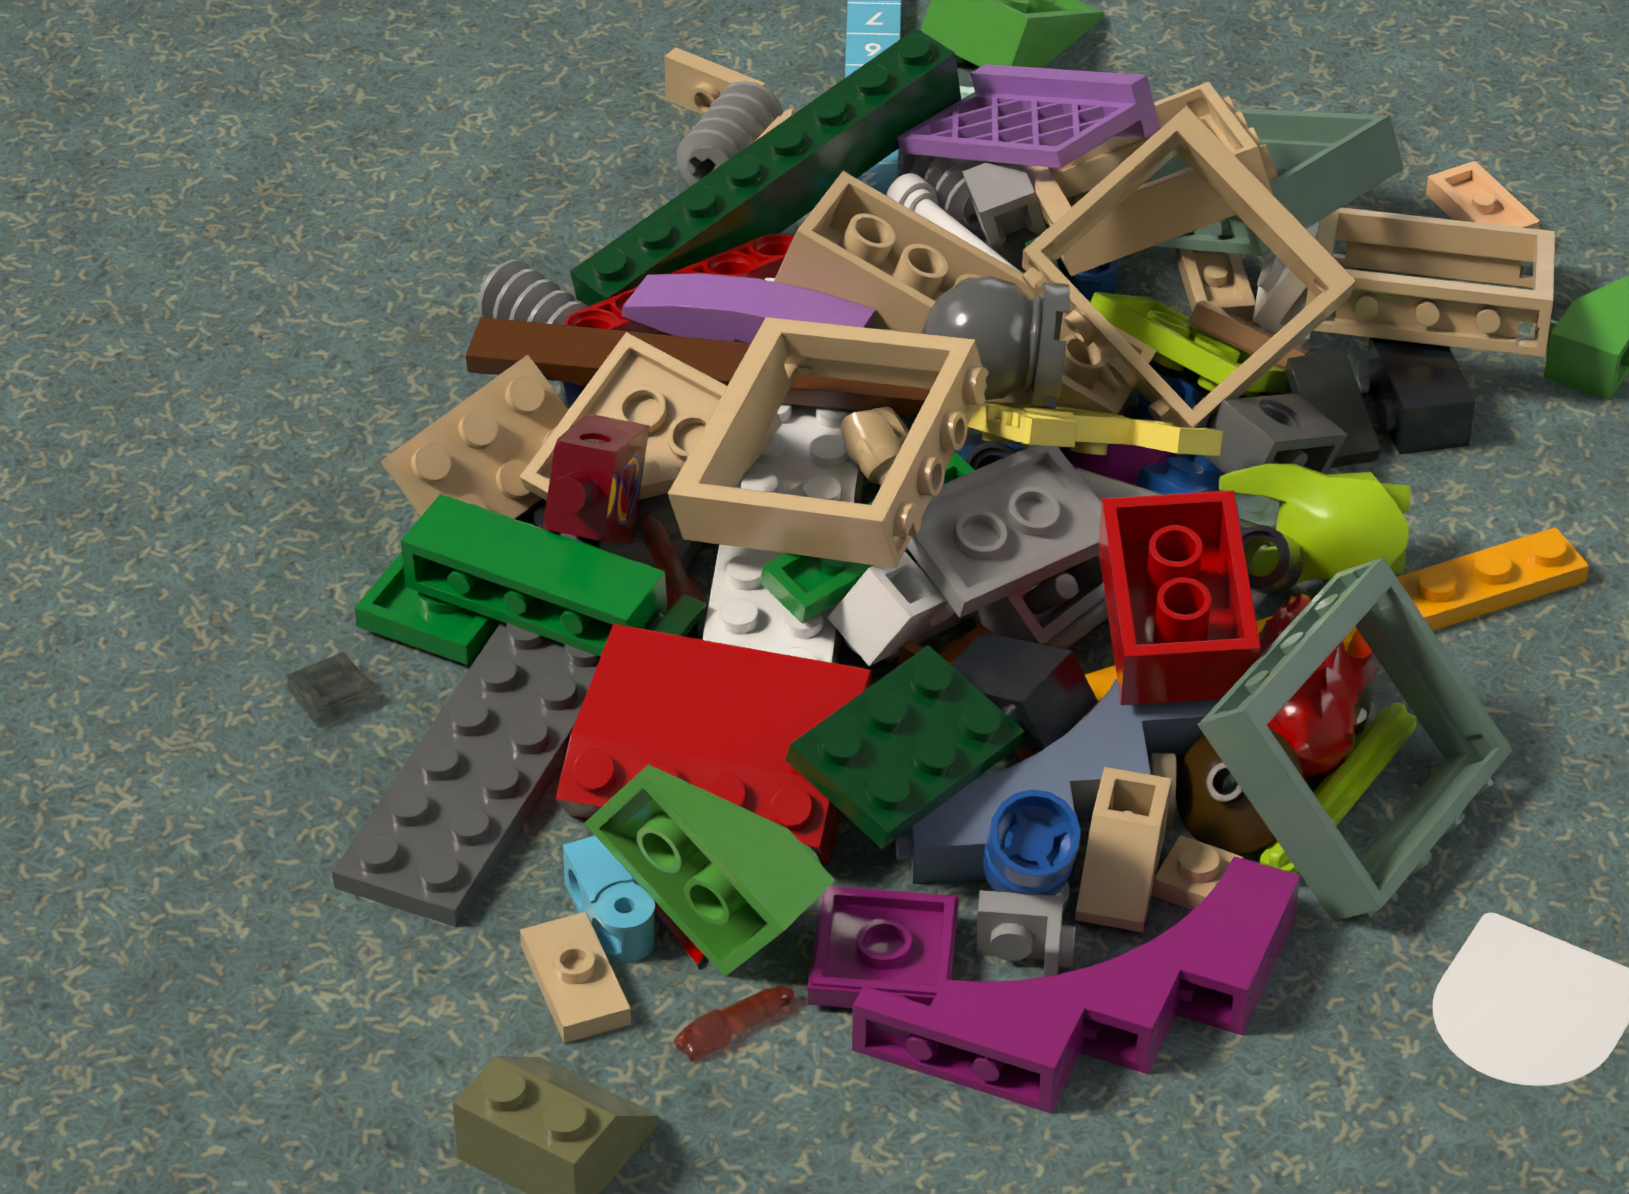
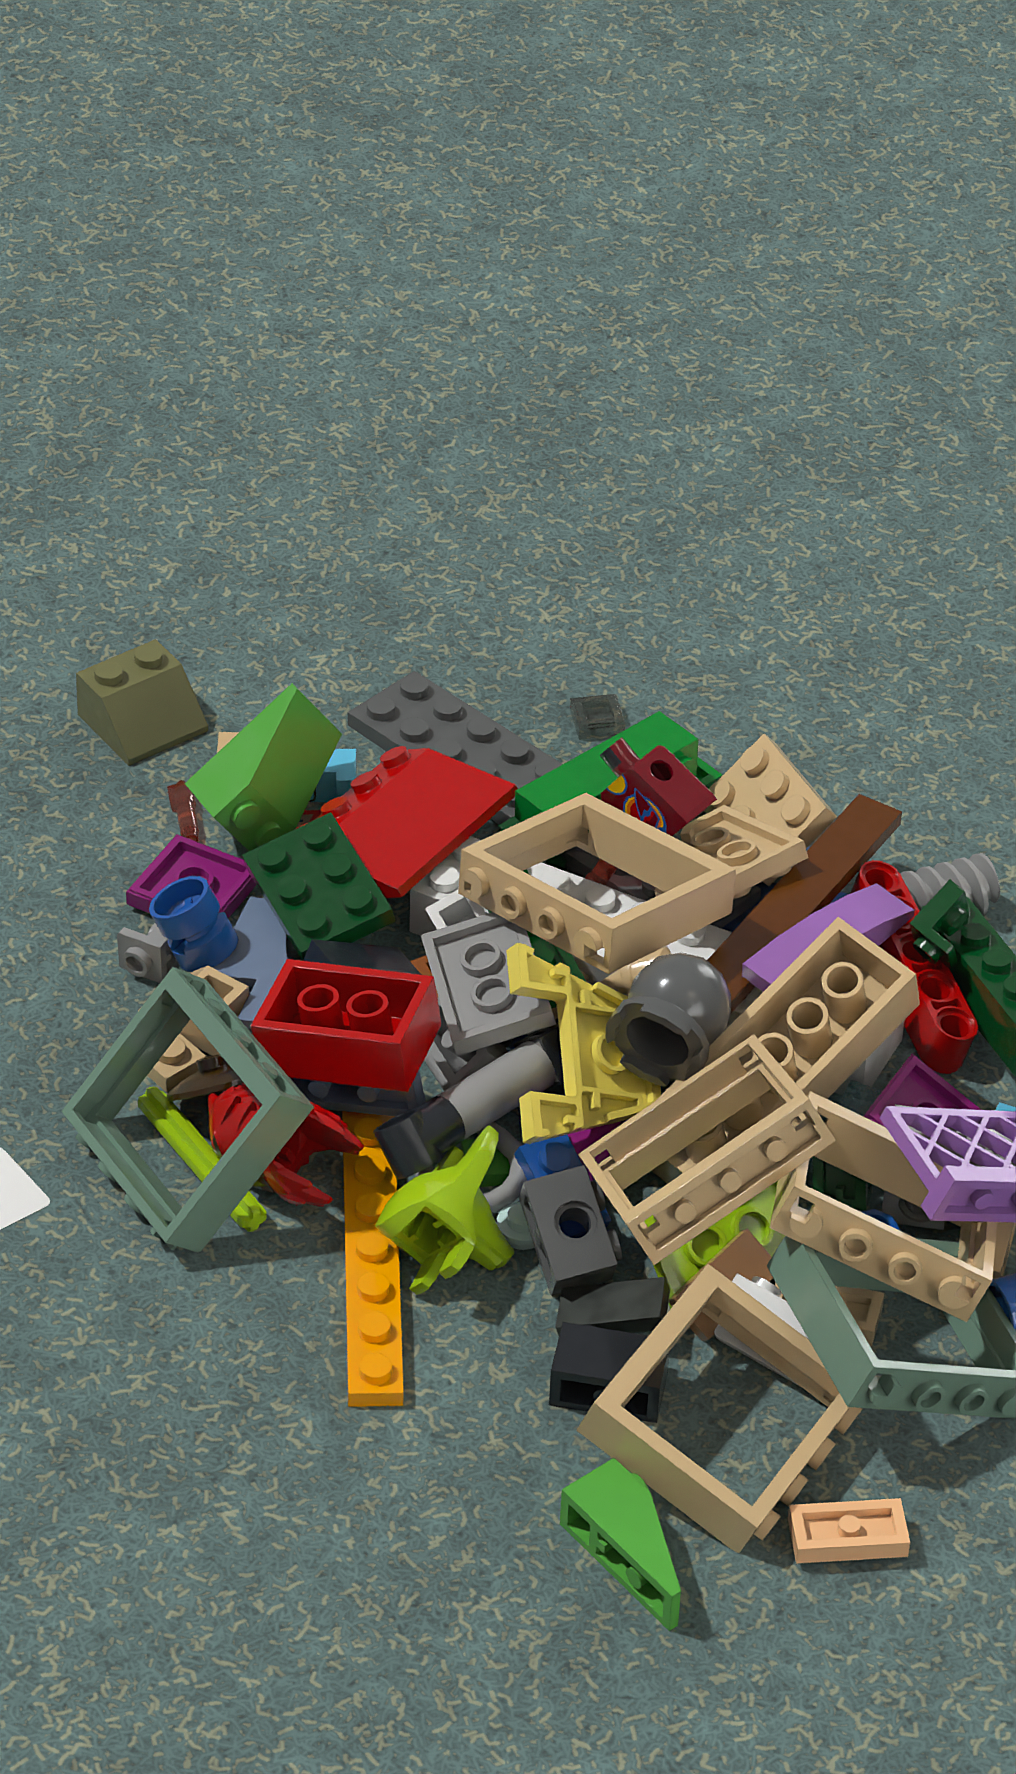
camera: 110 degrees right, 0 degrees up
(669, 240) = (940, 916): none -> dark green bracket
(1029, 1033) = (68, 924): magenta arch -> none

